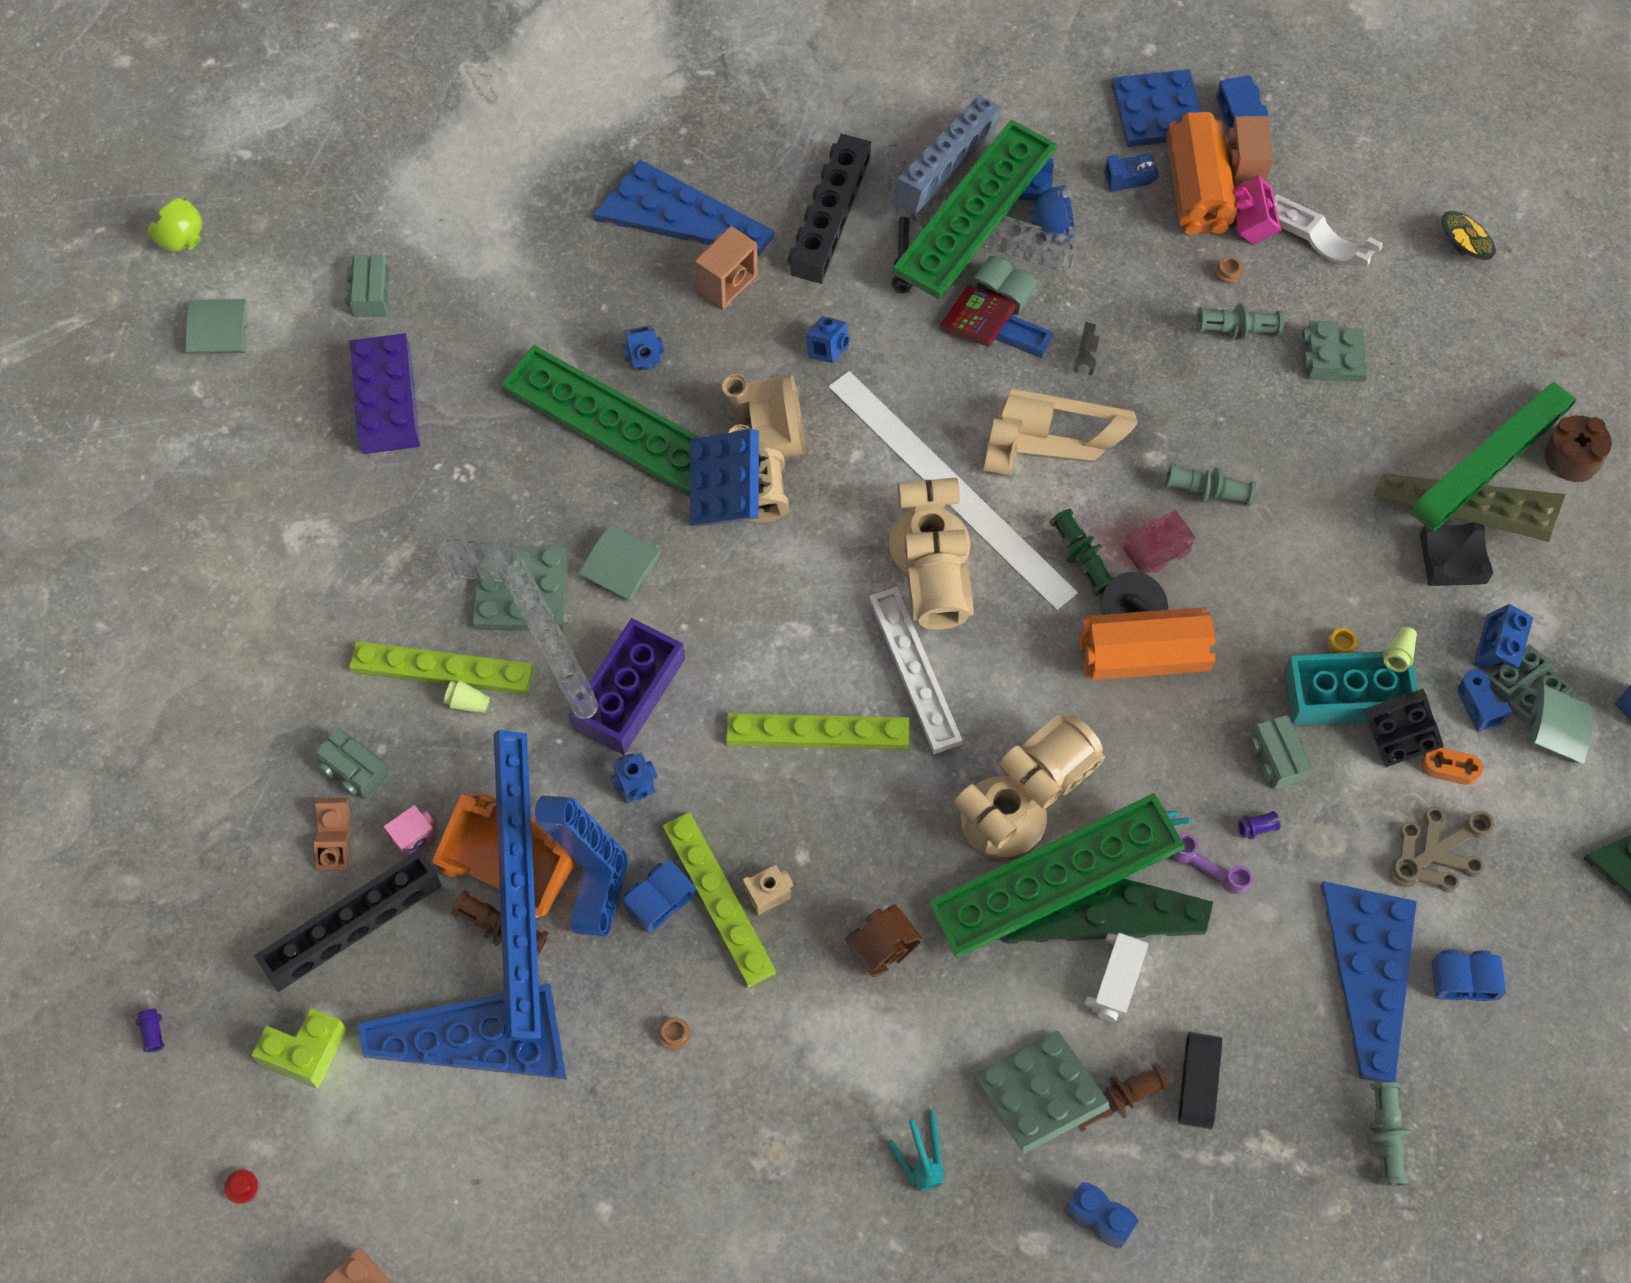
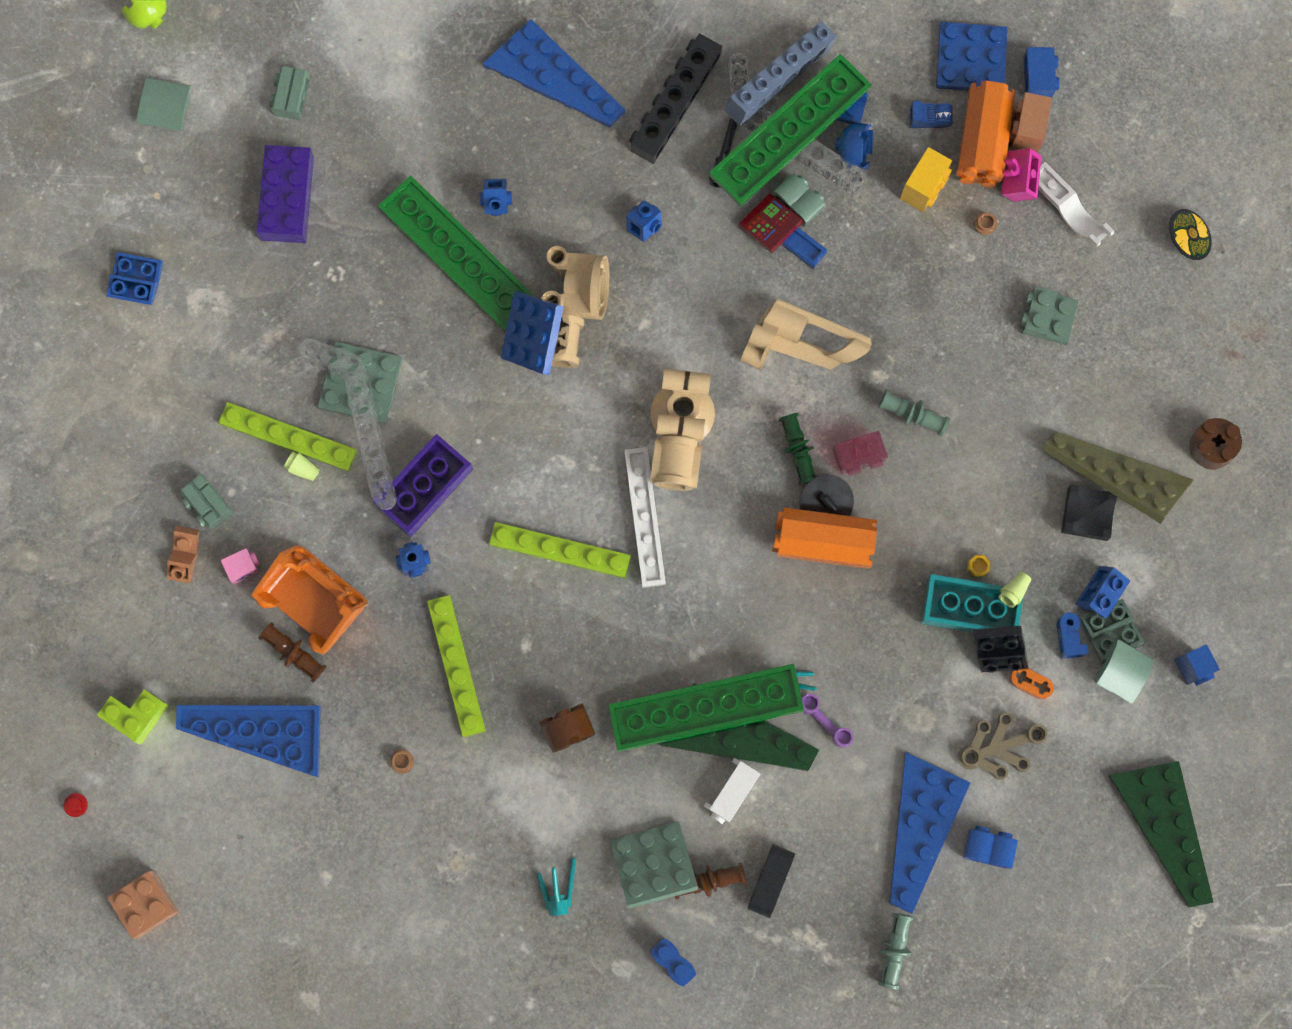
camera: 10 degrees right, 15 degrees up
(150, 1030) = (28, 676): dark purple pin -> none
(212, 524) = (134, 278): none -> blue slope
(348, 920) = (183, 627): black brick -> none
(516, 887) = (308, 628): blue plate -> none
(596, 852) = (374, 629): blue beam -> none
(620, 562) = (439, 379): sand green slope -> none
(658, 896) = (412, 656): blue brick -> none
(726, 267) = (577, 139): nougat brick -> none
(767, 898) = (487, 674): tan brick -> none
(971, 506) = (710, 363): white sticker -> none
(1041, 770) = (722, 623): tan piece -> none
(1088, 344) = (852, 267): clear smoke plate -> none
(1149, 233) = (927, 180): none -> yellow brick
(1240, 320) = (979, 273): sand green piece -> none
(1256, 825) = (870, 698): dark purple pin -> none
(1280, 752) = (903, 645): sand green brick -> none
(1492, 456) = (1142, 440): green beam -> none

